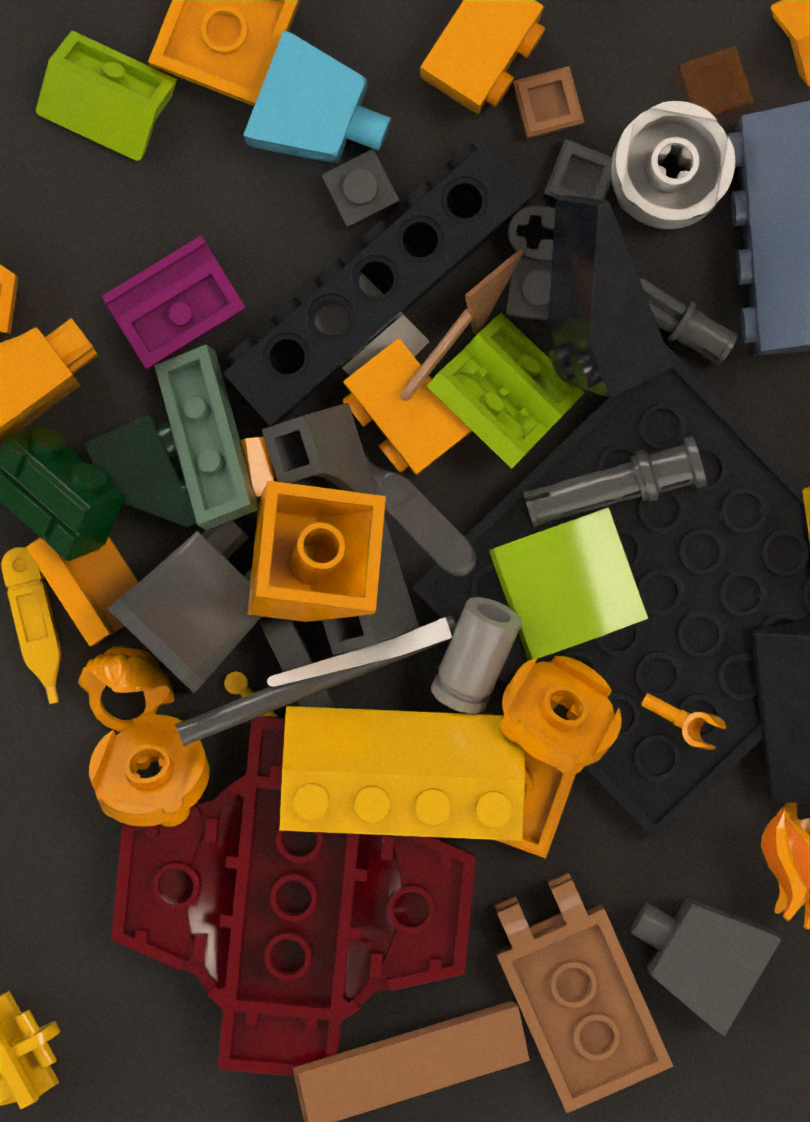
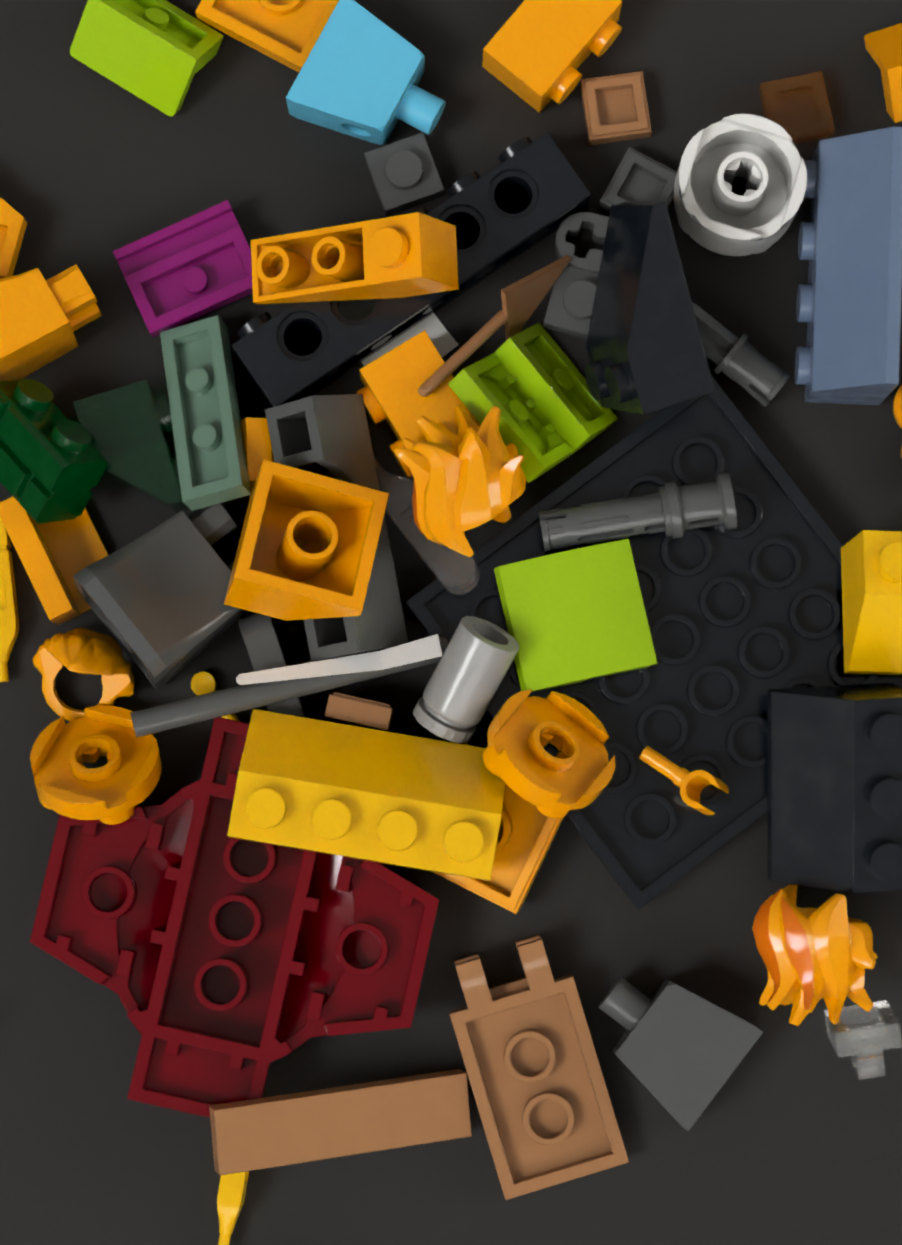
camera: 10 degrees right, 5 degrees down
(328, 284) = (357, 261): none -> light orange slope
(381, 693) = (359, 712): none -> medium nougat tile
(451, 474) = (461, 477): none -> light orange hair

